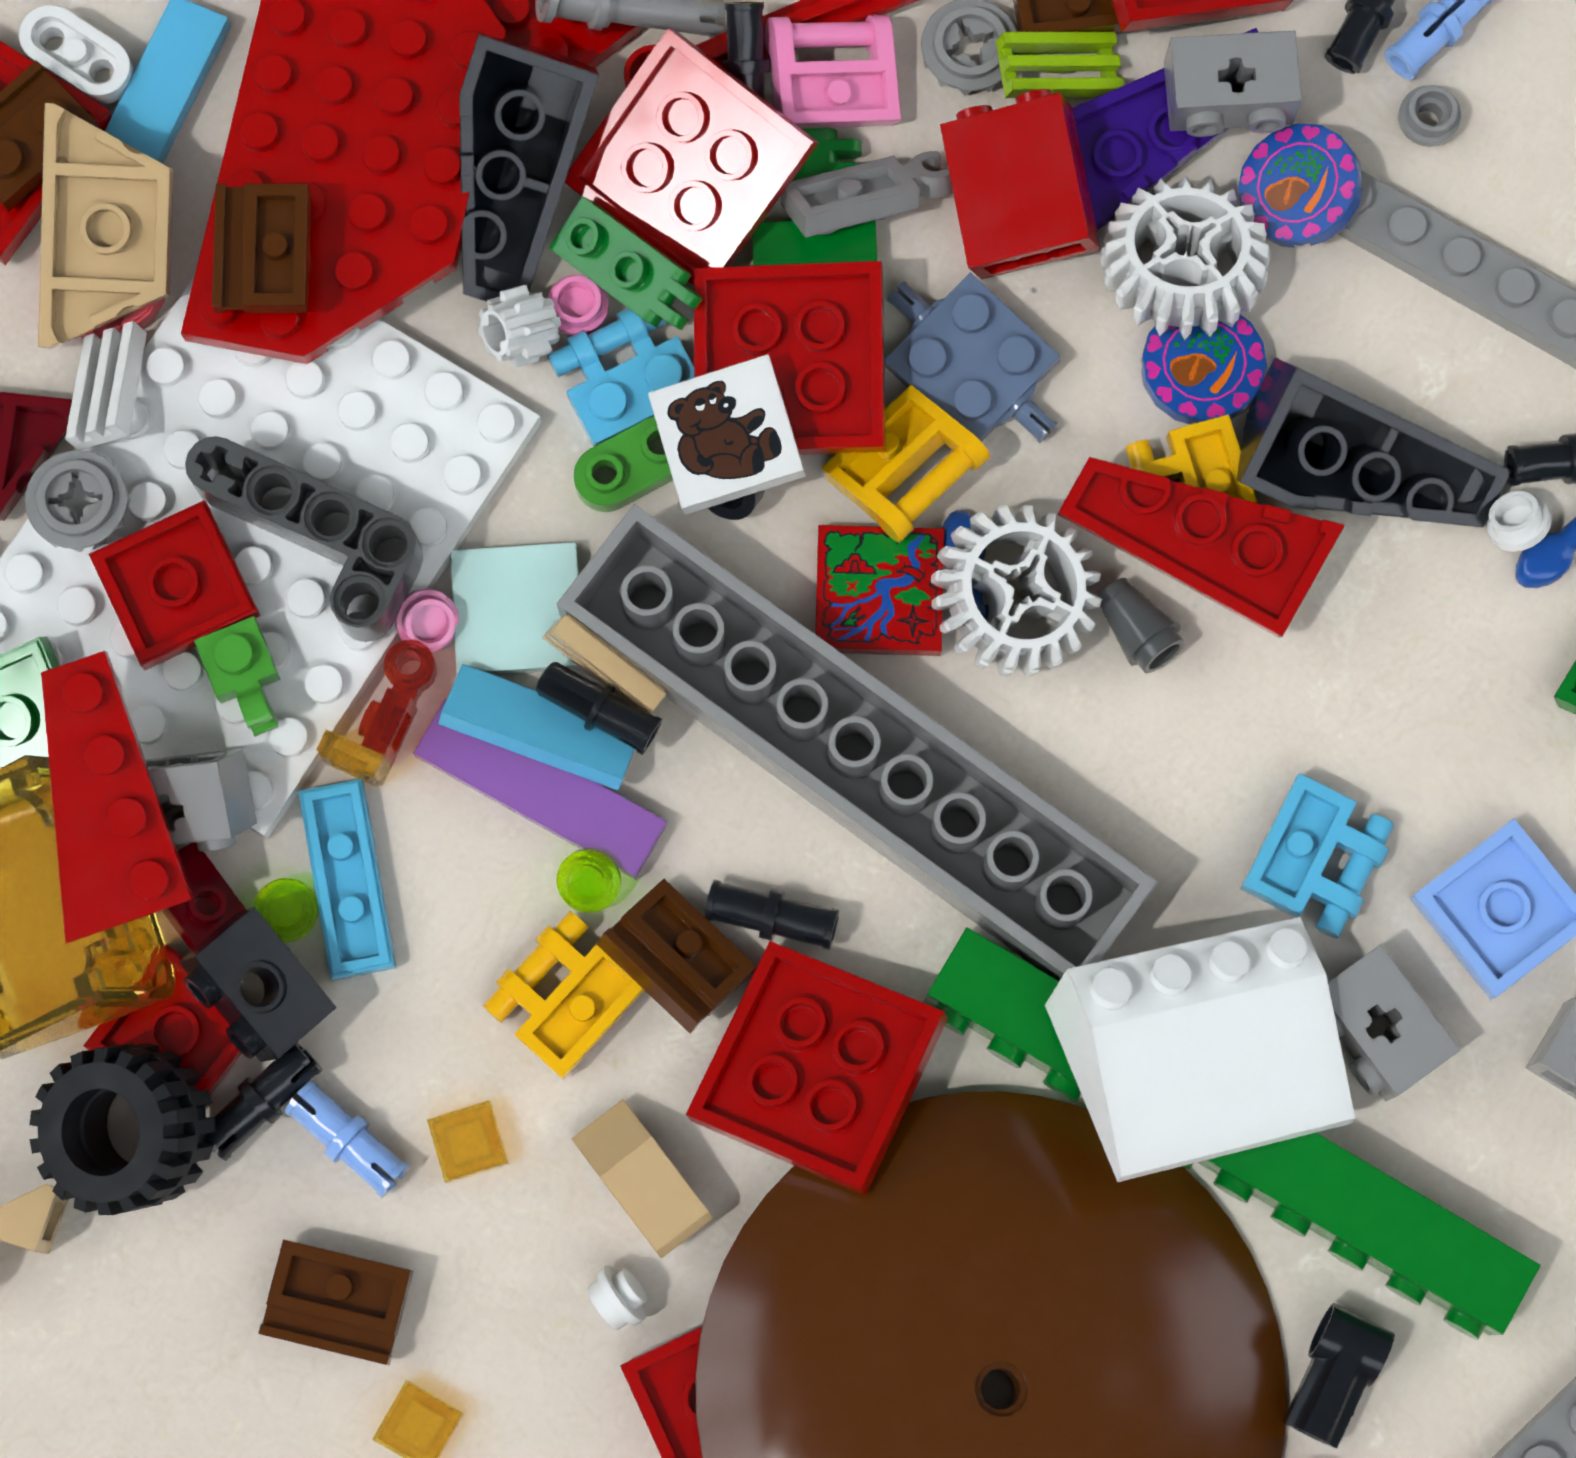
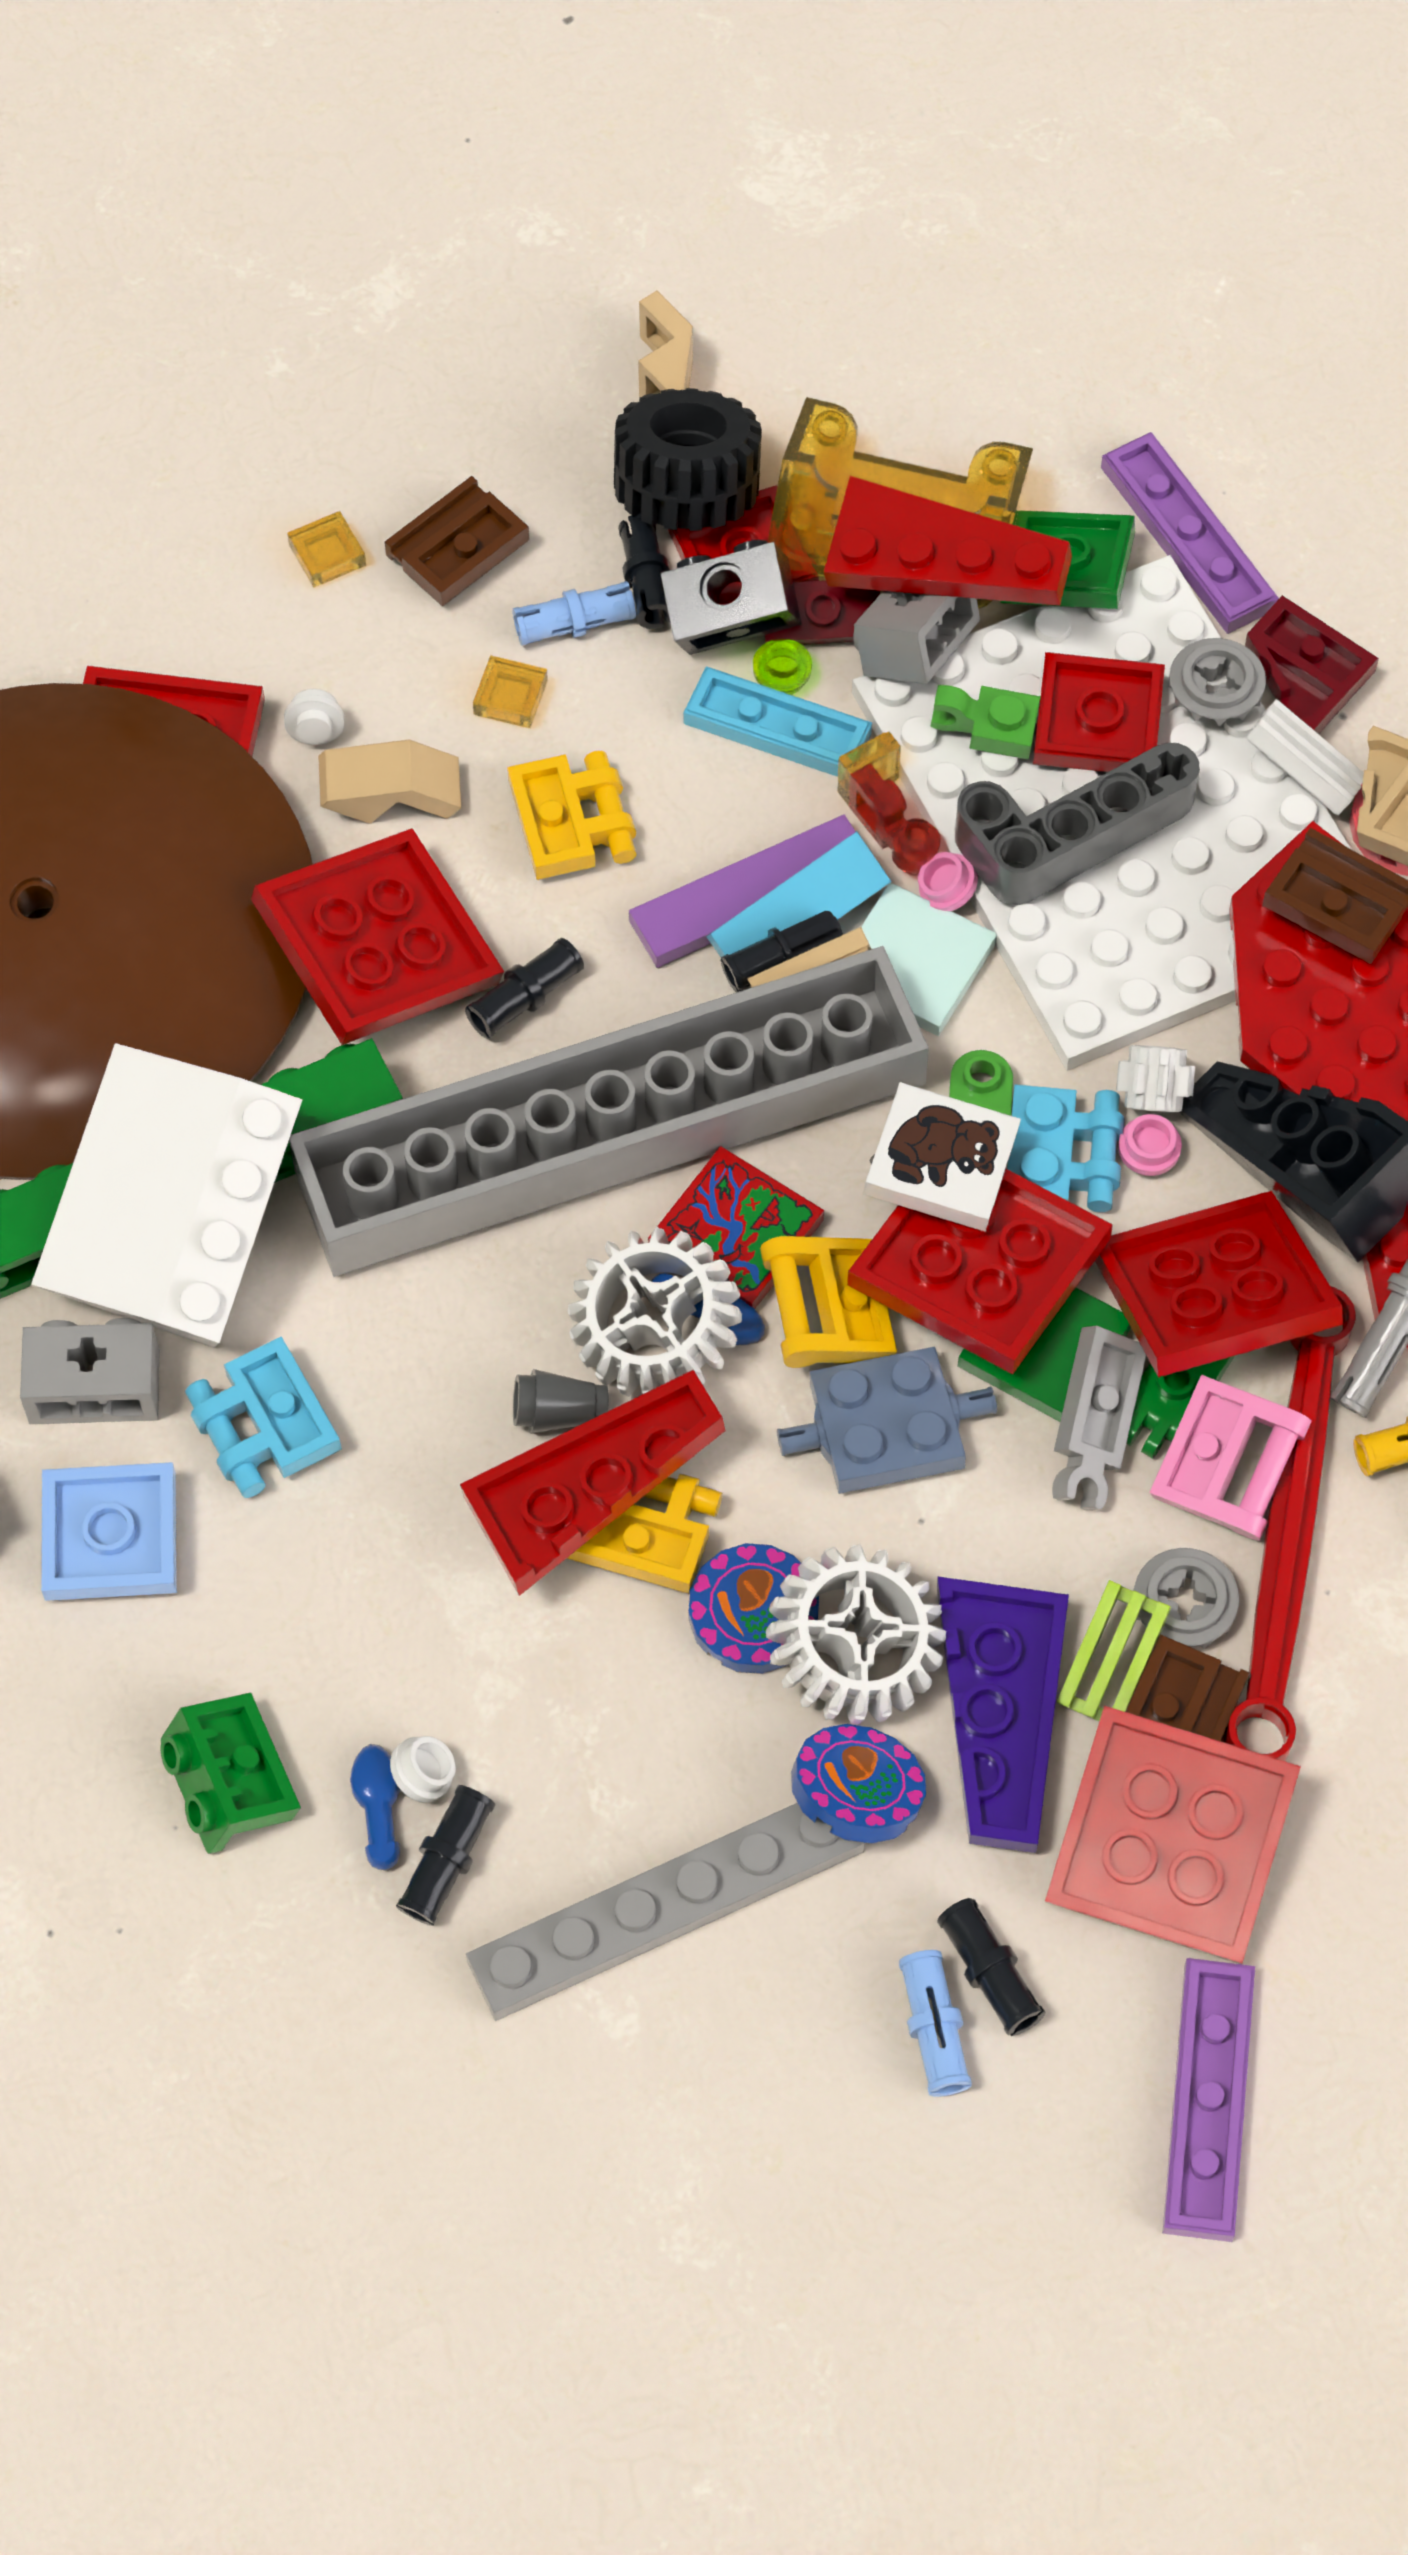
camera: 125 degrees right, 15 degrees down
(588, 880) = (649, 875): clear neon green plate -> none
(624, 264) = (1153, 1182): green hinge -> none
(676, 955) = (541, 897): reddish brown plate -> none
(746, 44) = (1284, 1384): black pin -> none
(1019, 184) = (1015, 1534): red brick -> none
(1258, 64) = (979, 1801): light grey brick -> none
(1341, 453) = (591, 1662): black wedge -> none
(1432, 99) = (858, 1937): light grey plate -> none

